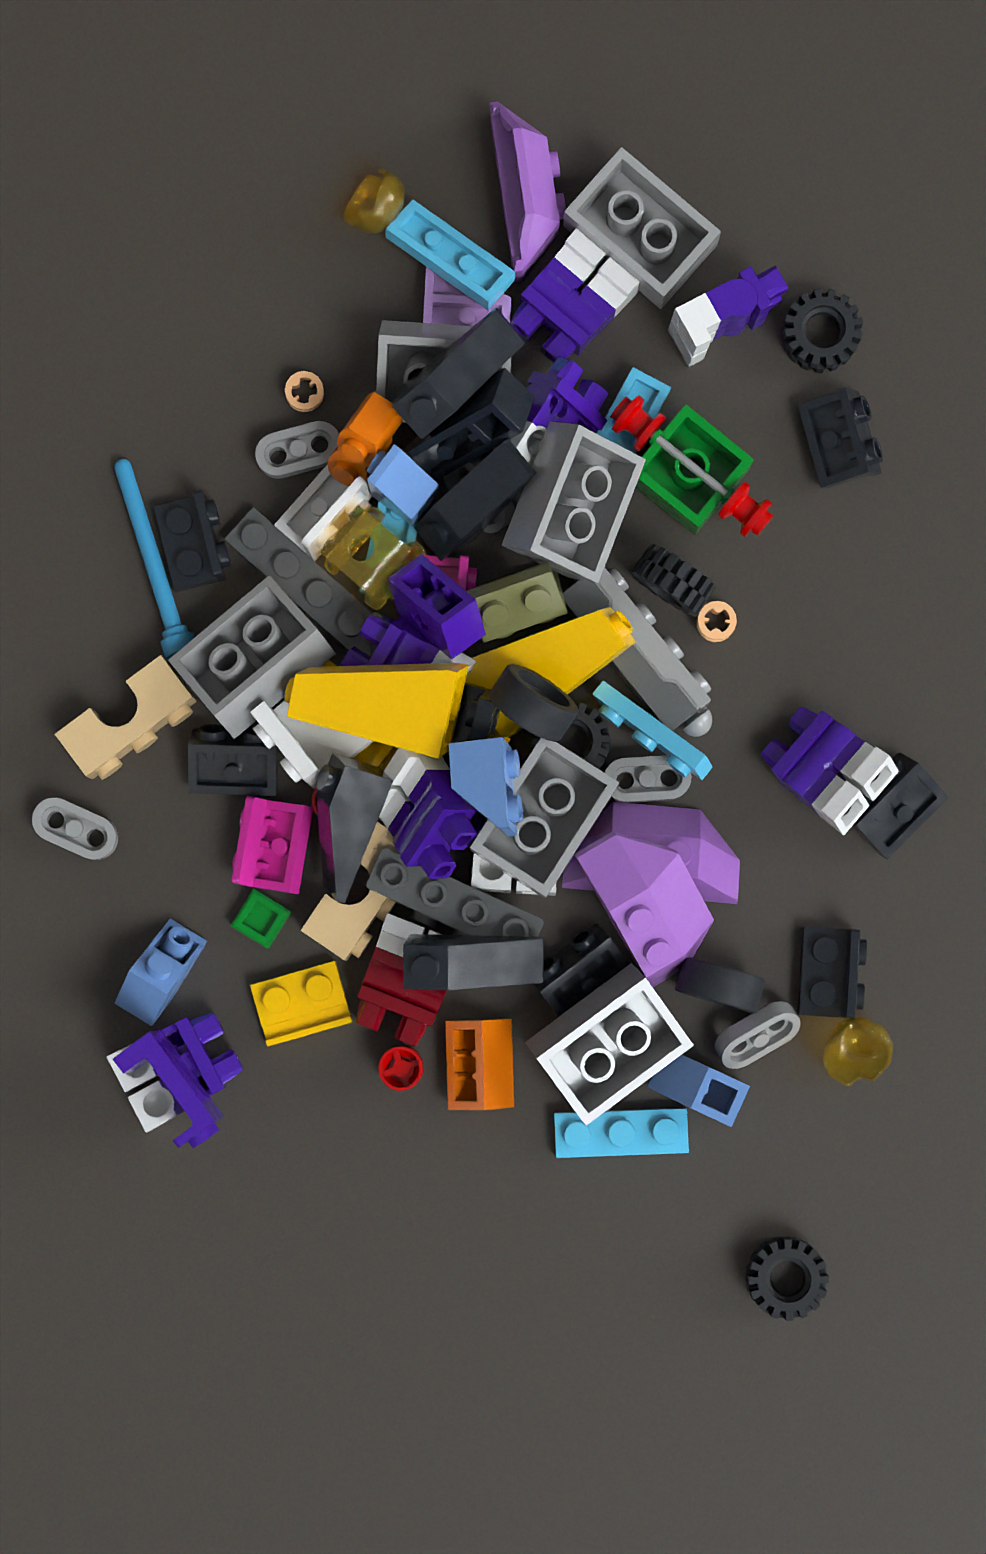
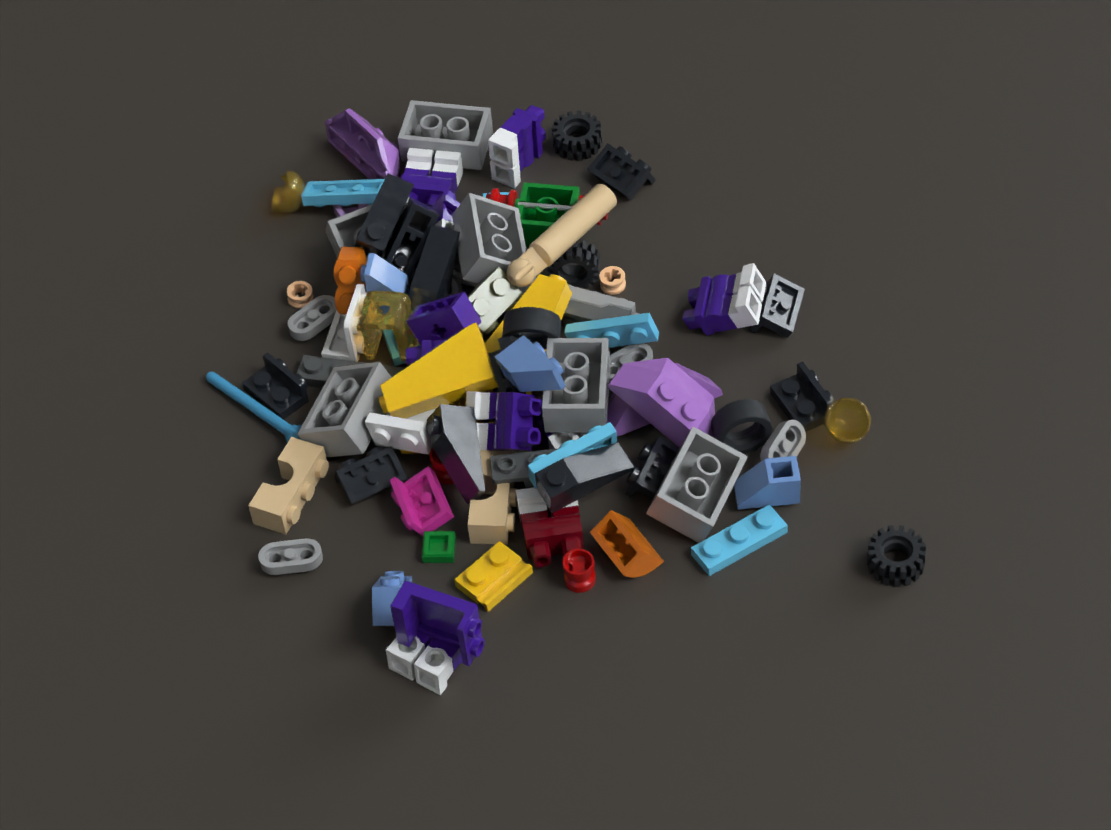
camera: 30 degrees left, 35 degrees down
(472, 928) = (595, 438): none -> medium azure plate
(665, 561) = (561, 235): none -> tan piece

